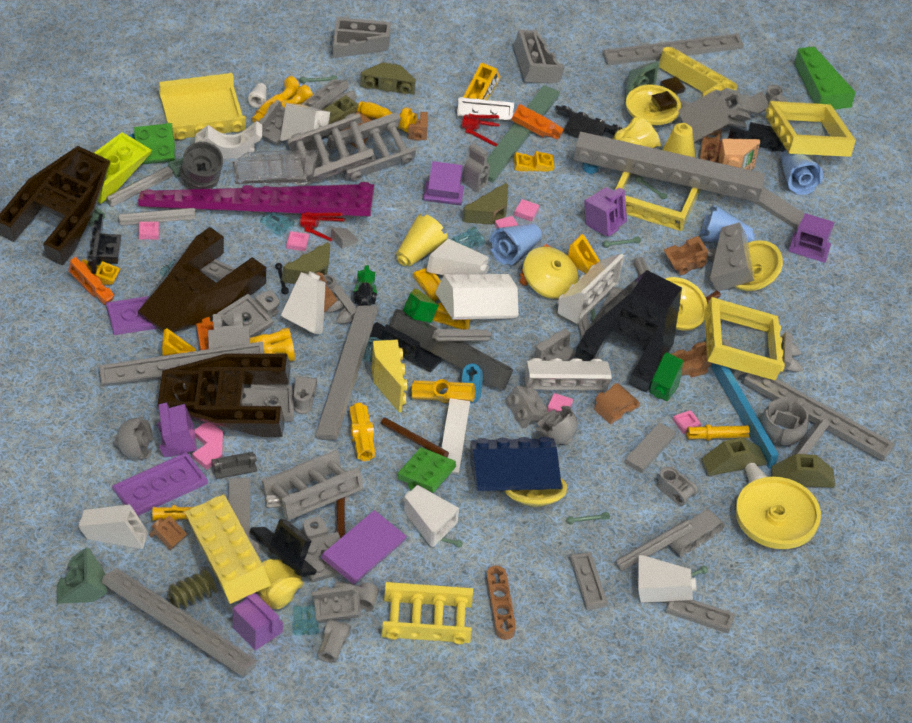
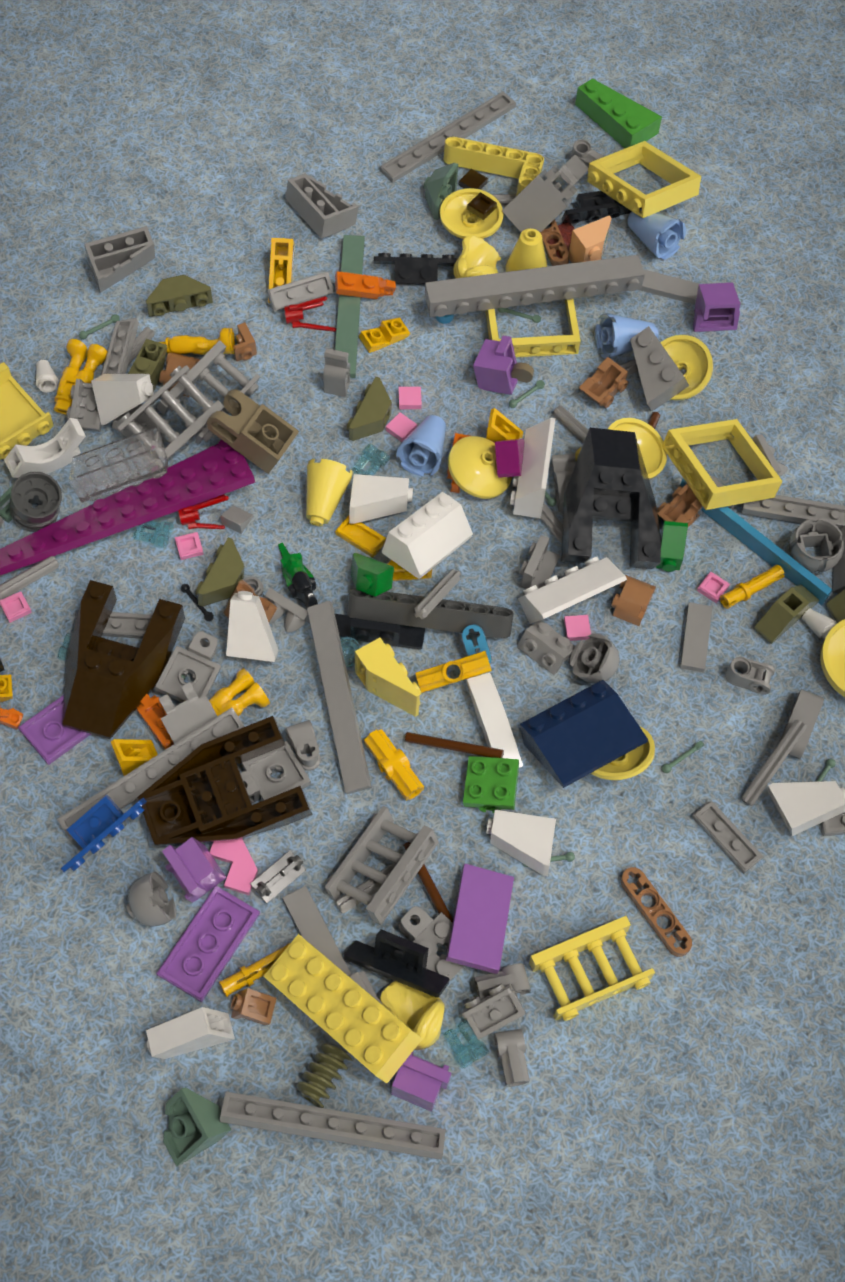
camera: 25 degrees left, 15 degrees up
(124, 377) = (96, 825): none -> blue bracket
(388, 181) = (252, 430): none -> dark tan brick
(444, 184) = (311, 405): medium lavender plate -> none
(574, 268) = (509, 457): none -> magenta slope
(626, 224) = (522, 372): none -> dark tan tile

